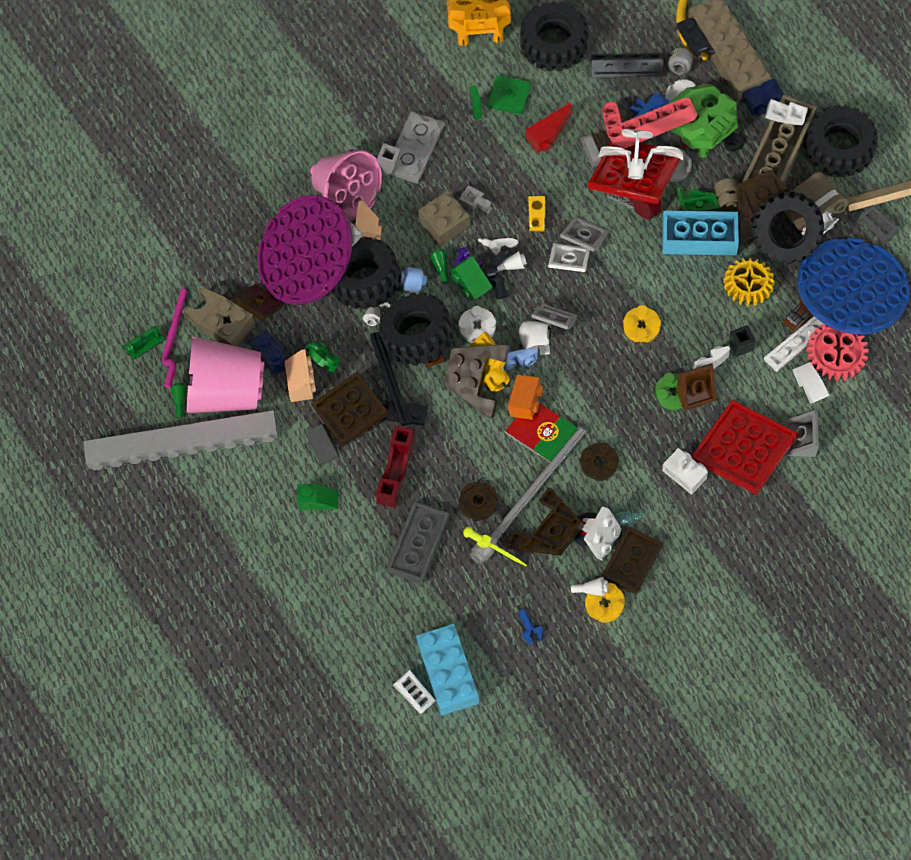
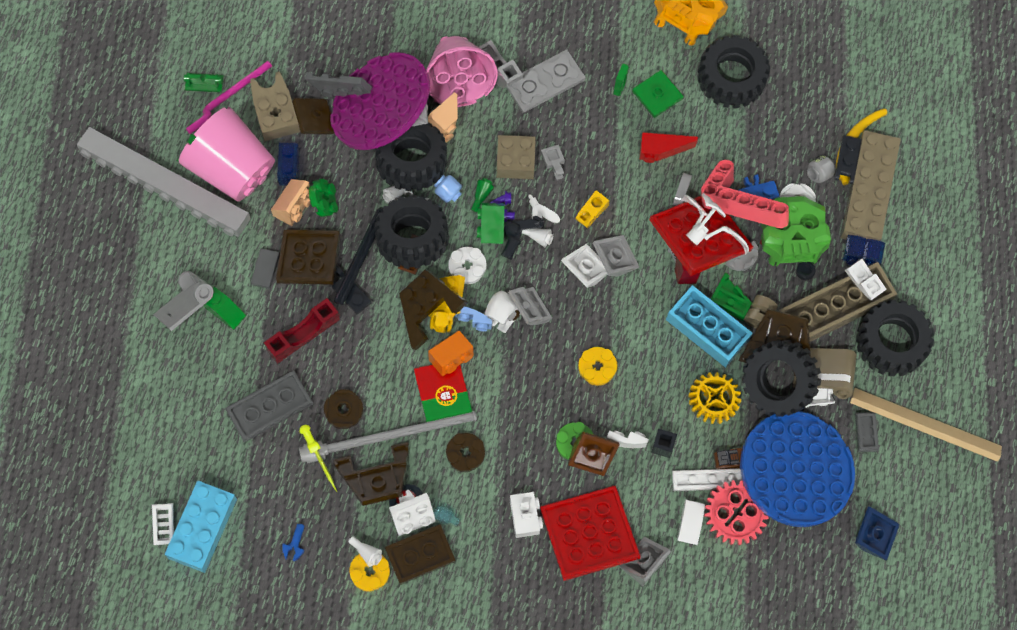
camera: 30 degrees right, 5 degrees up
(263, 262) = (343, 86): none -> dark grey wing
(285, 512) = (194, 295): none -> light grey door
(626, 65) = (774, 139): black fence -> none

